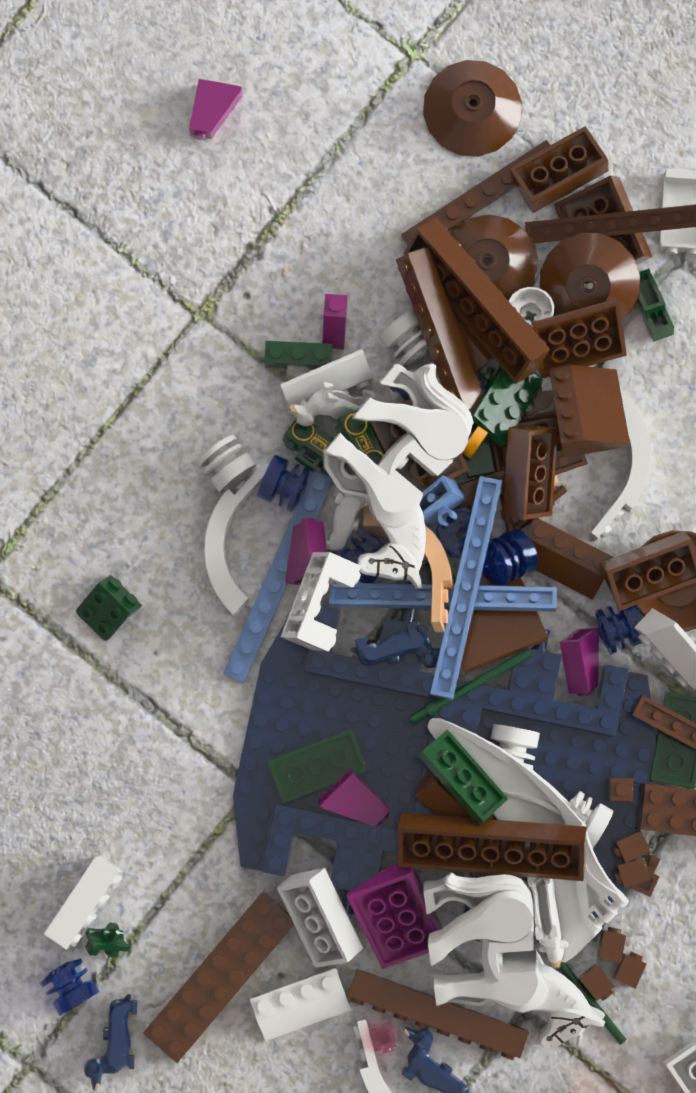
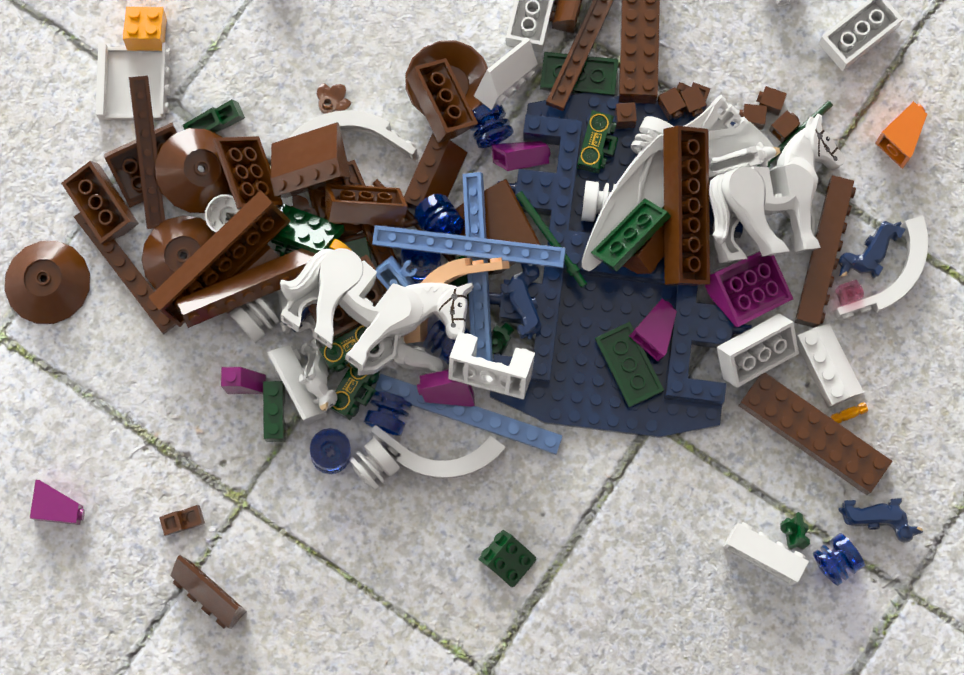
camera: 90 degrees left, 5 degrees down
(99, 270) = (207, 592): none -> reddish brown slope
(184, 246) = (182, 520): none -> reddish brown slope
(240, 403) = (325, 441): none -> clear blue wheel
(241, 1020) = (850, 413): none -> light orange axle
(360, 618) = (501, 338): none -> dark green hips
(602, 754) = (592, 150): none -> dark green piece
(673, 447) = (332, 96): none -> reddish brown plate

